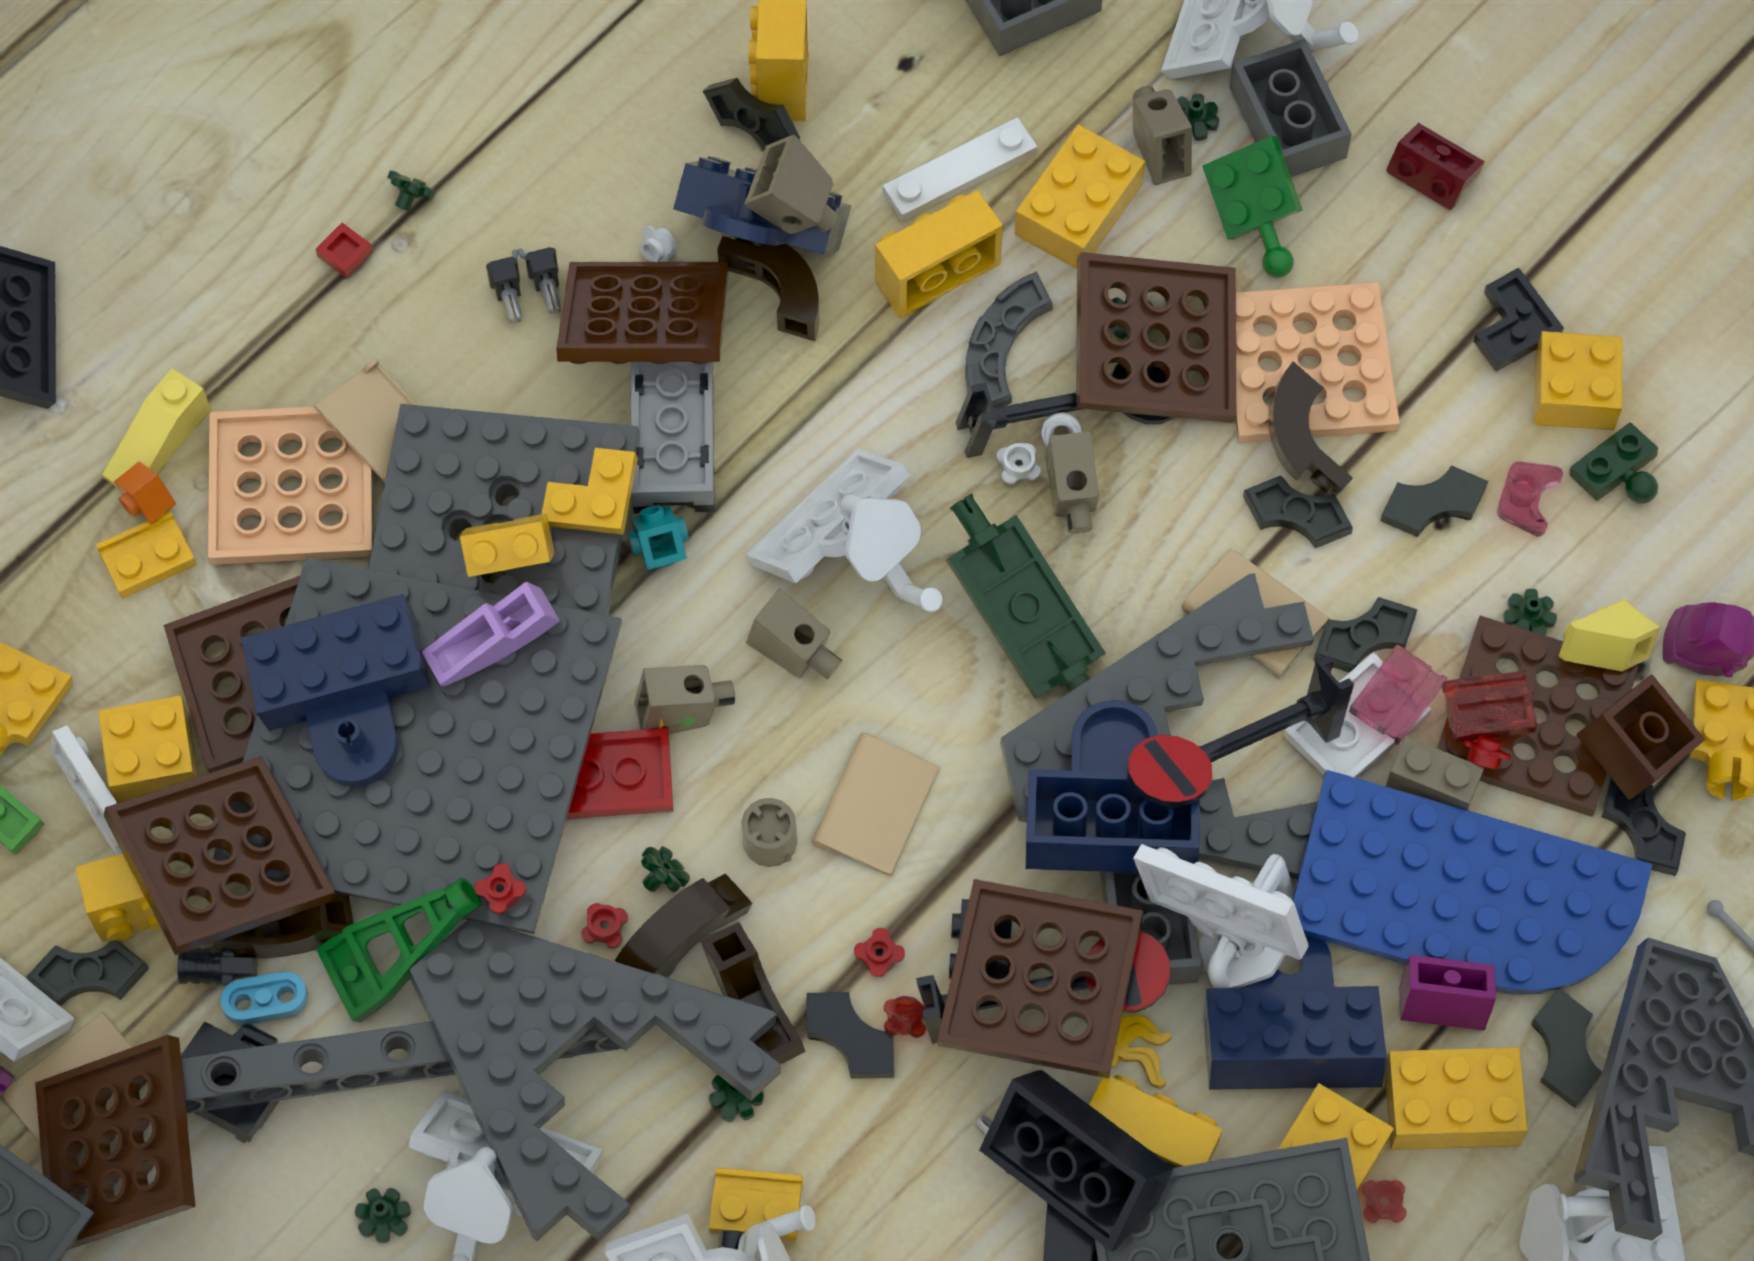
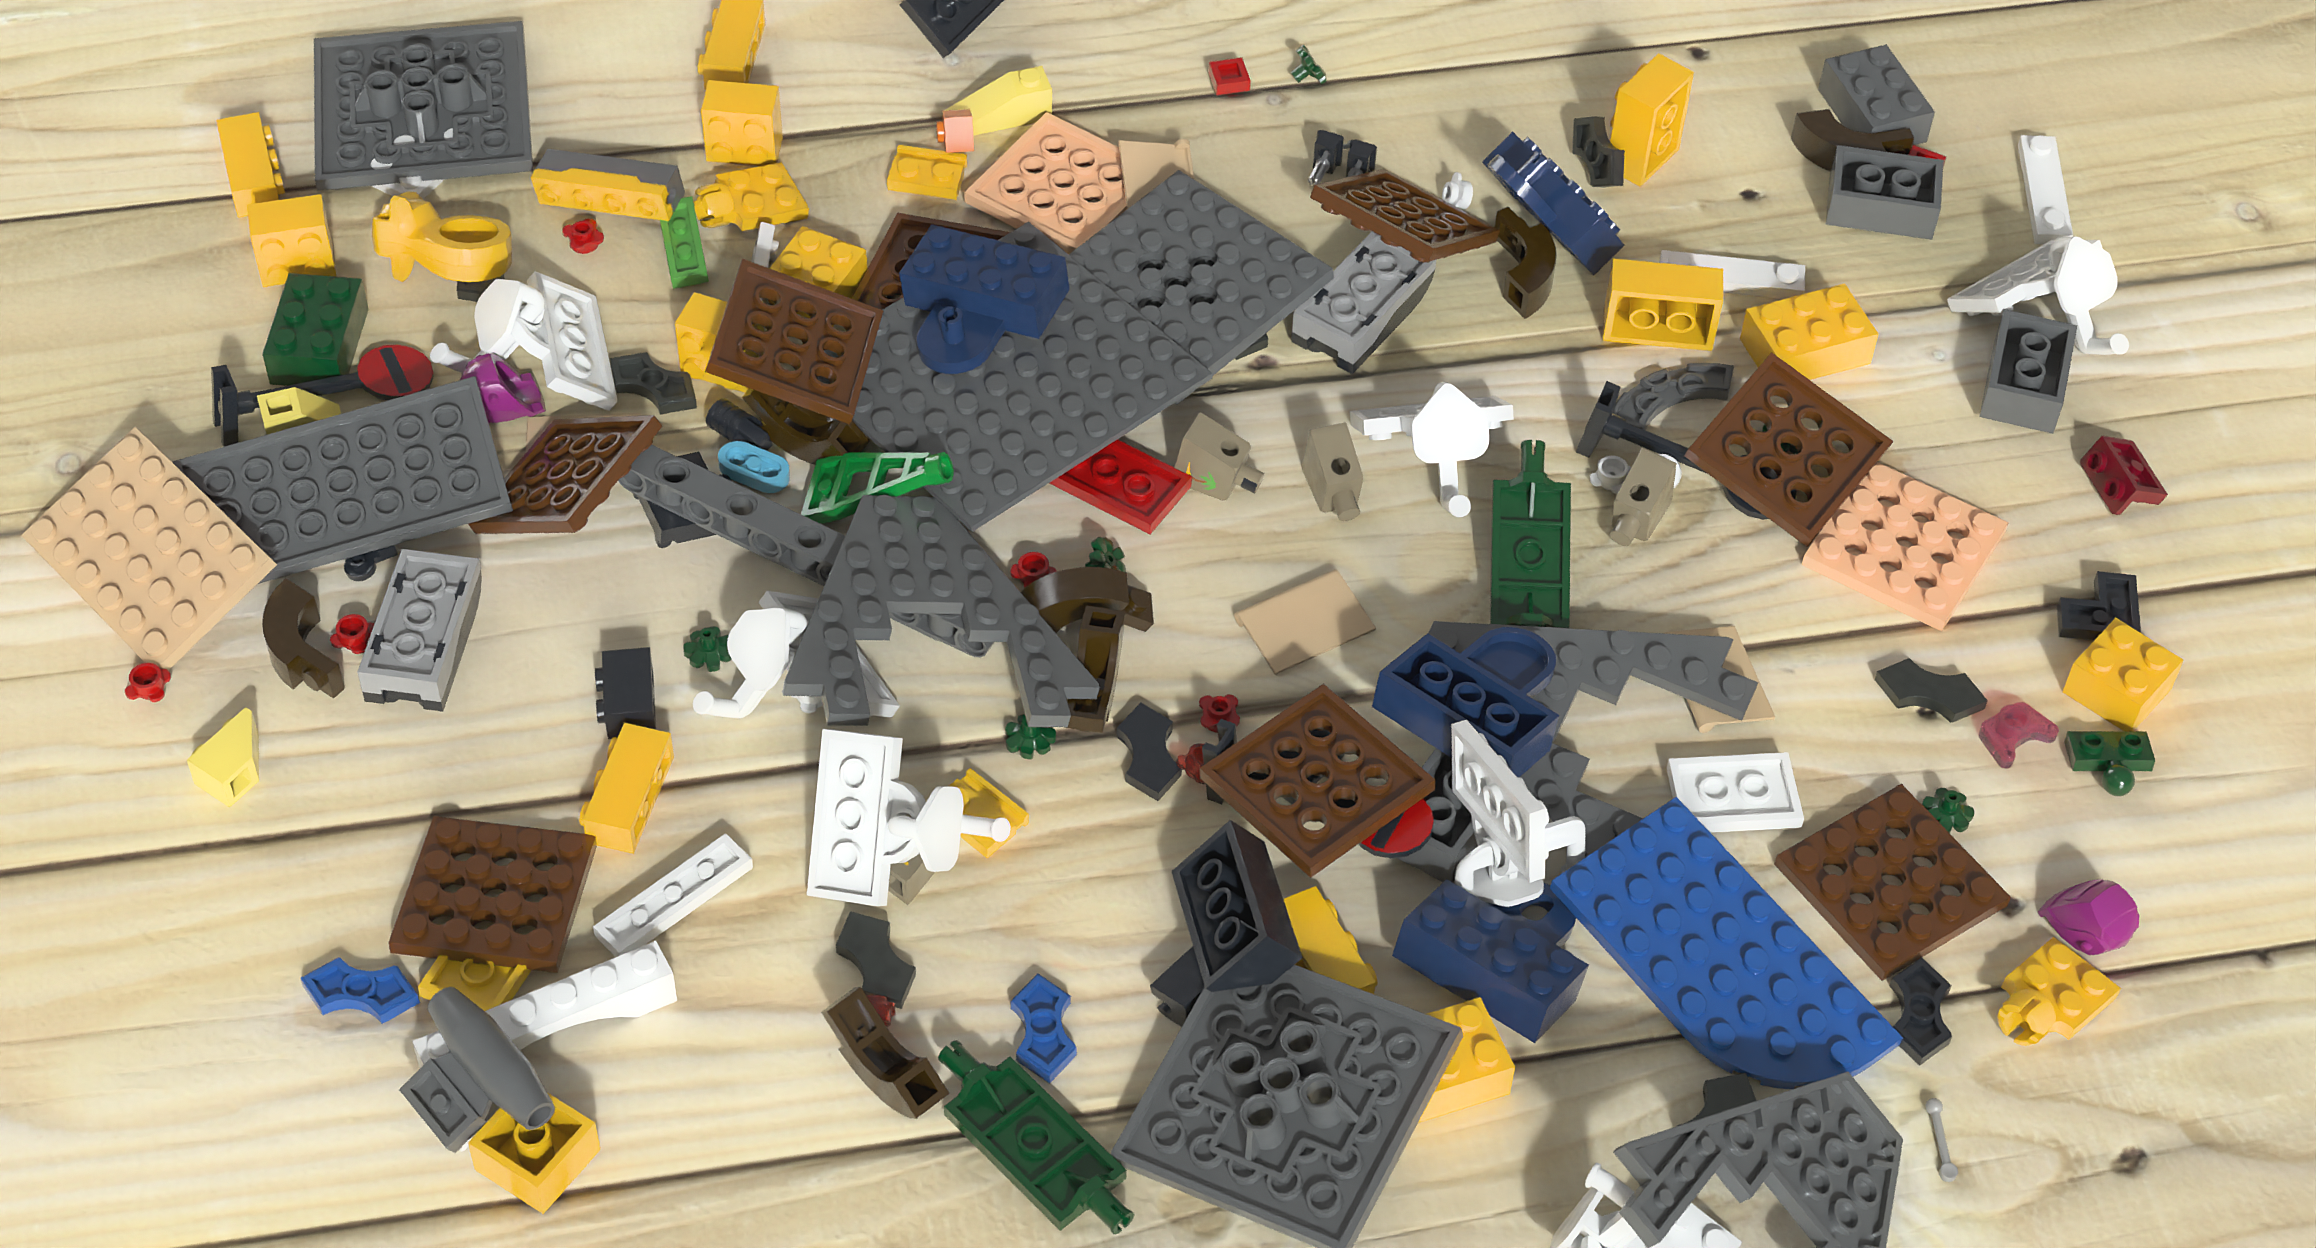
camera: 35 degrees right, 15 degrees down
(490, 634) = (1109, 324): lavender slope -> none
(503, 900) = (970, 481): red plate -> none
(507, 545) = (1169, 278): yellow brick -> none
(602, 503) = (1261, 296): yellow plate -> none
(658, 537) = (1279, 358): teal brick -> none
(769, 832) = (1205, 583): dark tan piece -> none
(791, 188) = (1572, 176): dark tan torso -> none
(1137, 1027) = (1362, 885): yellow piece -> none
(1158, 118) = (1910, 322): dark tan torso -> none
(1180, 772) = (1548, 702): black piece -> none
(1200, 115) = (1950, 341): dark green plant -> none
(1251, 194) = (1948, 403): green plate -> none
(1291, 433) = (1854, 552): dark brown arch -> none
(1315, 517) = (1819, 643): pearl dark grey tile -> none
(1354, 639) = (1811, 746): pearl dark grey tile -> none
(1393, 1192) = (1473, 1116): clear red plate -> none
(1397, 694) = (1782, 788): clear pink plate -> none
(1434, 774) = (1767, 860): dark tan brick -> none
(1447, 992) = (1645, 1010): magenta brick -> none
(1455, 1098) = (1587, 1088): yellow brick -> none
(1486, 752) = (1821, 866): red plate -> none
(1489, 706) = (1851, 838): clear red plate -> none
(1610, 638) = (1997, 855): light yellow slope -> none
(1640, 737) = (1963, 932): reddish brown brick -> none

